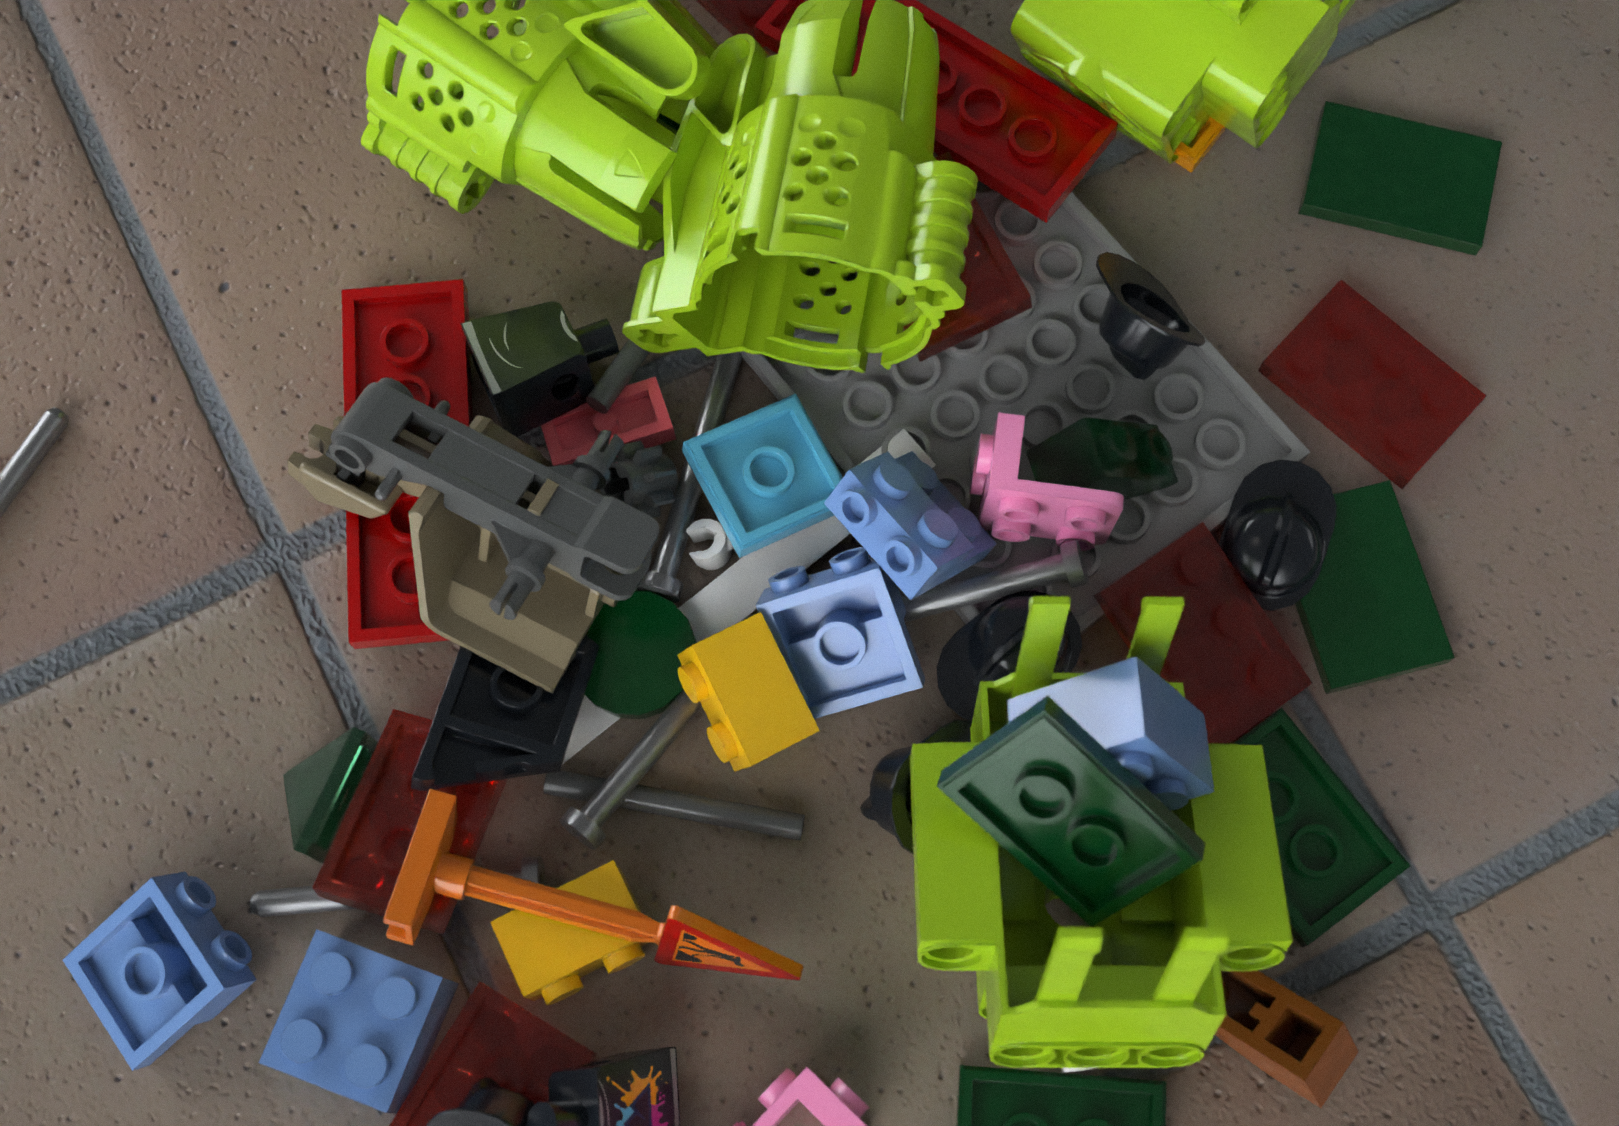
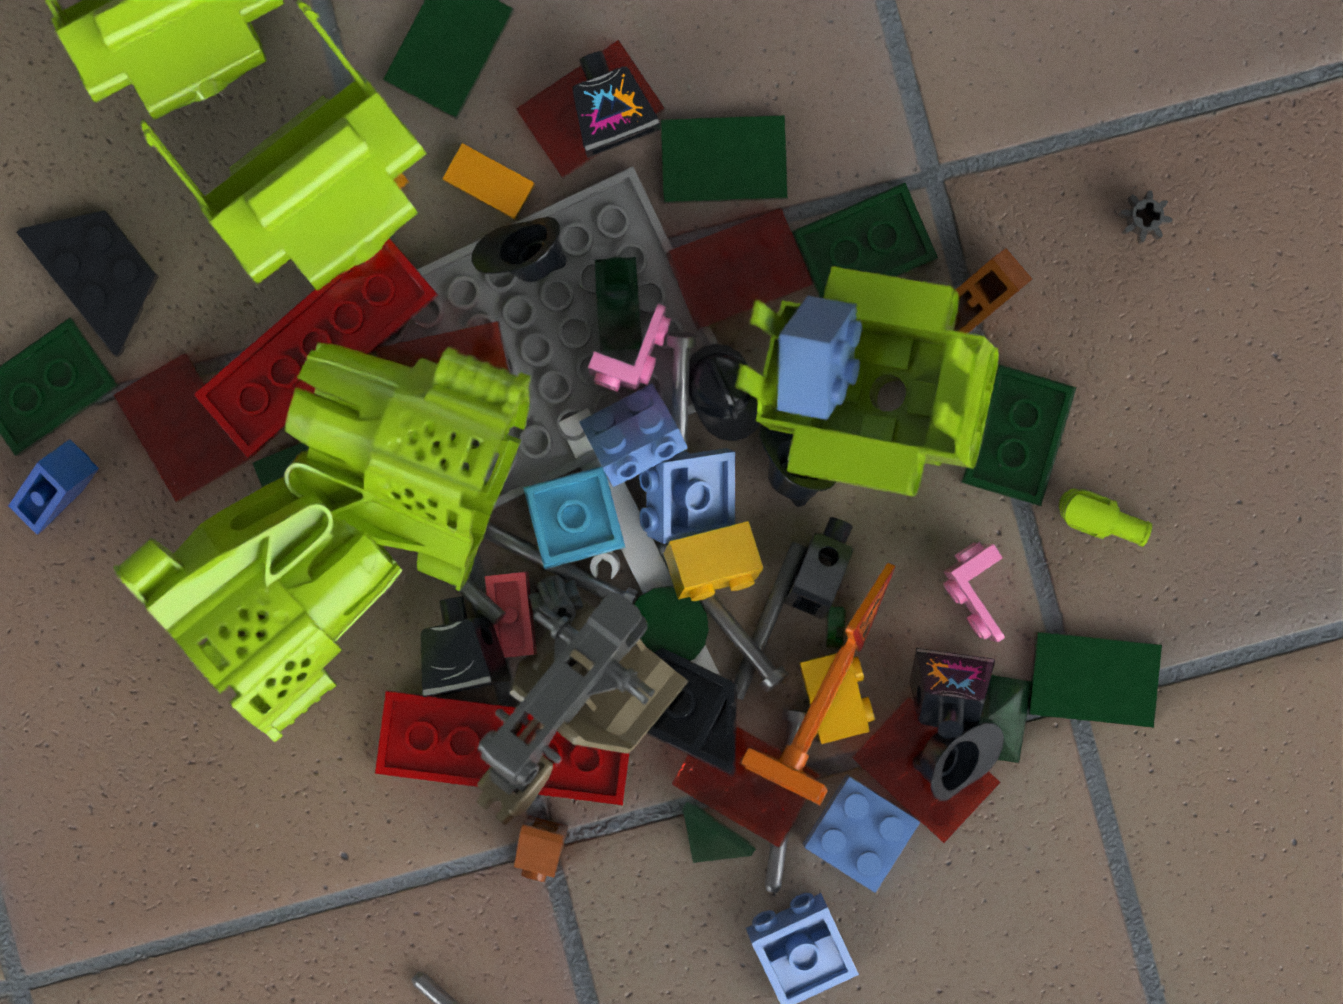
camera: 75 degrees left, 15 degrees up
(267, 528) = (540, 848): none -> dark orange slope
(698, 901) = (834, 627): none -> dark green tile
(741, 865) = (814, 582): none -> black torso
(1071, 812) = (855, 392): dark green tile -> none
(1225, 269) = (488, 181): none -> light orange tile
(1279, 531) = (681, 202): black piece -> none
(1388, 391) = (611, 106): none -> black torso

